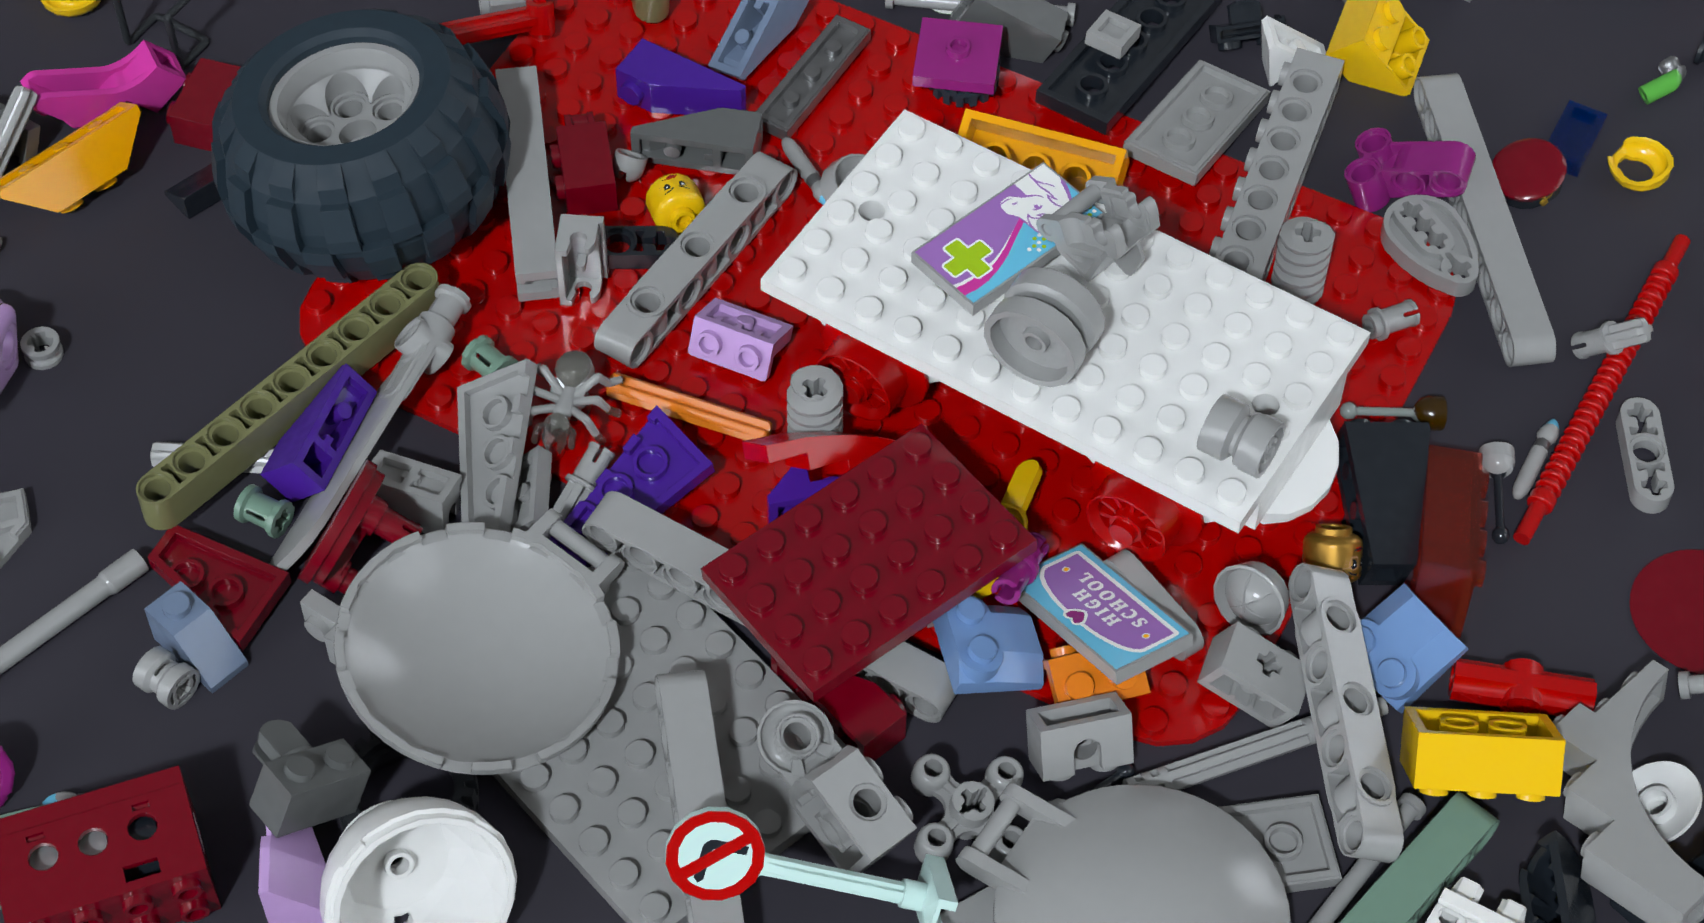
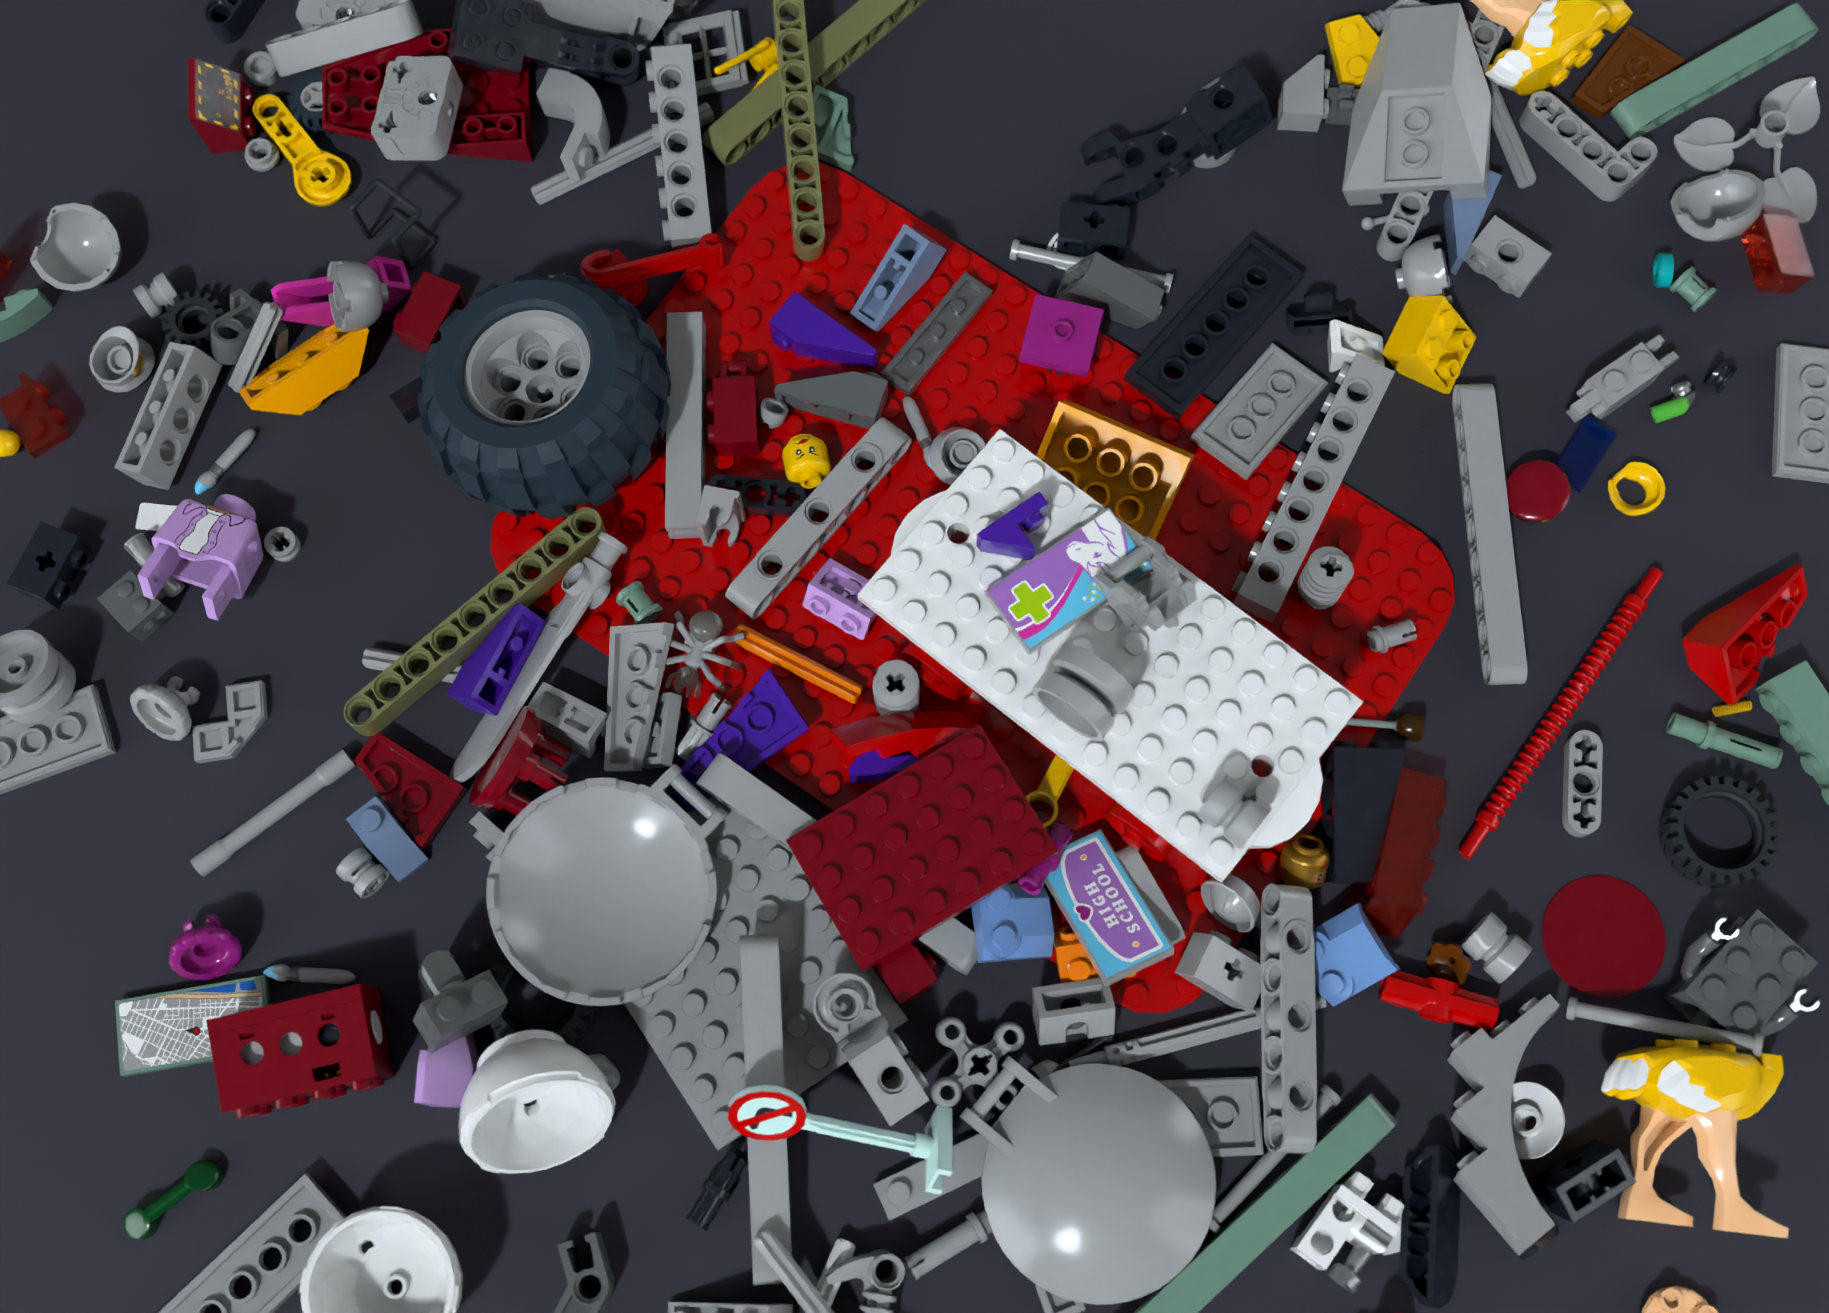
camera: 10 degrees right, 20 degrees up
(125, 71) = (356, 295): none -> light grey cylinder
(263, 511) = (448, 723): sand green bush -> none
(937, 190) = (1007, 533): none -> dark purple slope
(1112, 34) = (1198, 322): light grey plate -> none
(1406, 169) = (1430, 485): magenta piece -> none
(1425, 262) = (1455, 547): light grey piece -> none
(1482, 753) = (1393, 1066): yellow brick -> none
(1499, 462) = (1456, 781): hinge -> none
(1520, 640) = (1449, 962): none -> reddish brown plant
(1527, 475) = (1502, 758): light grey piece -> none
(1578, 624) = (1499, 951): none -> light grey wheel
(1600, 60) = (1621, 380): none -> light grey hinge
(1612, 337) = (1575, 675): light grey axle -> none

